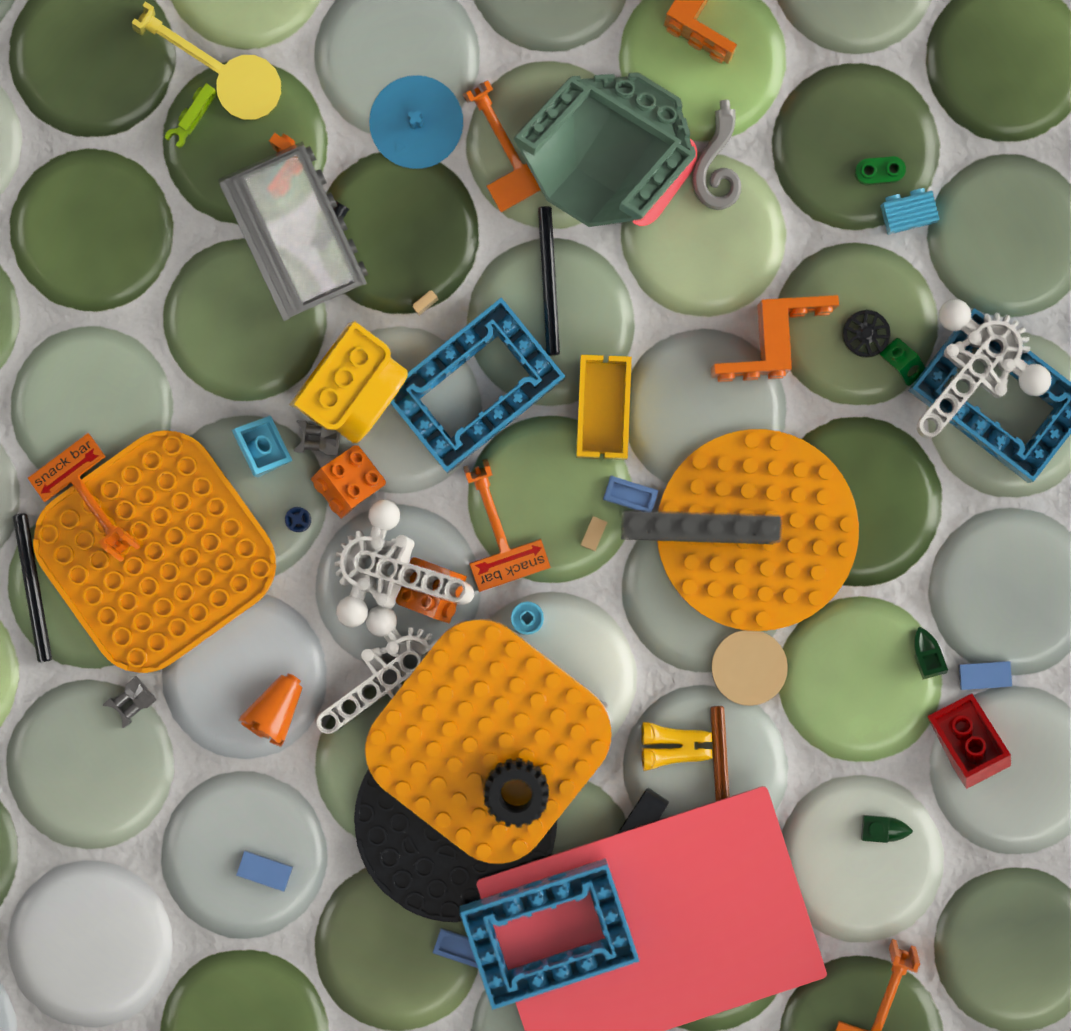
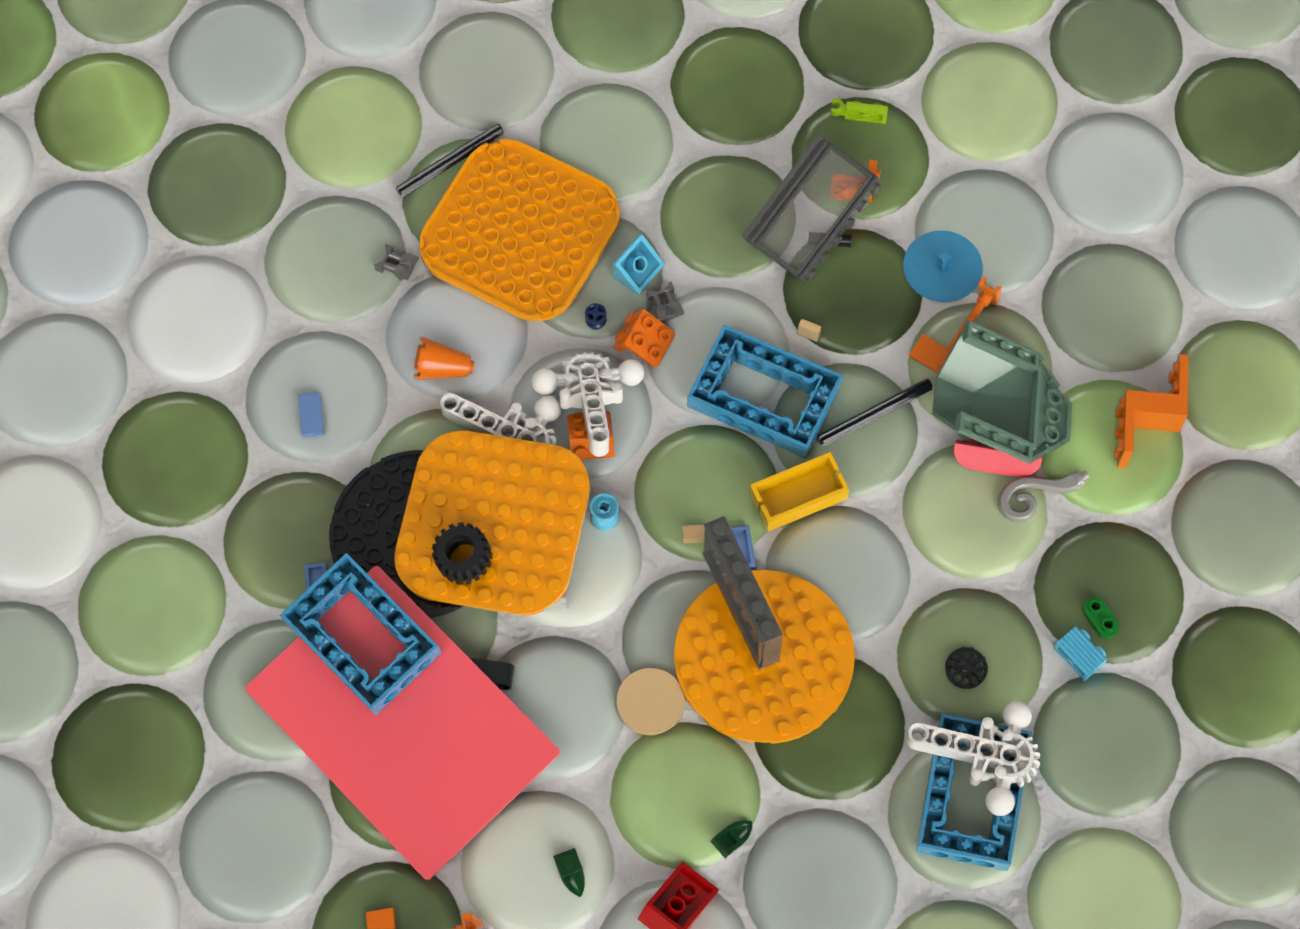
camera: 65 degrees right, 20 degrees down
(67, 469) = (550, 143): orange piece -> none
(245, 85) = (903, 138): light yellow piece -> none
(351, 384) = (717, 297): yellow brick -> none
(508, 563) = (640, 482): orange piece -> none
(656, 734) = (560, 652): yellow piece -> none
(719, 752) = (572, 709): dark orange axle -> none
(775, 337) = (923, 592): orange bracket -> none
(902, 359) = (961, 701): green bracket -> none
(985, 675) = (739, 893): medium blue tile -> none

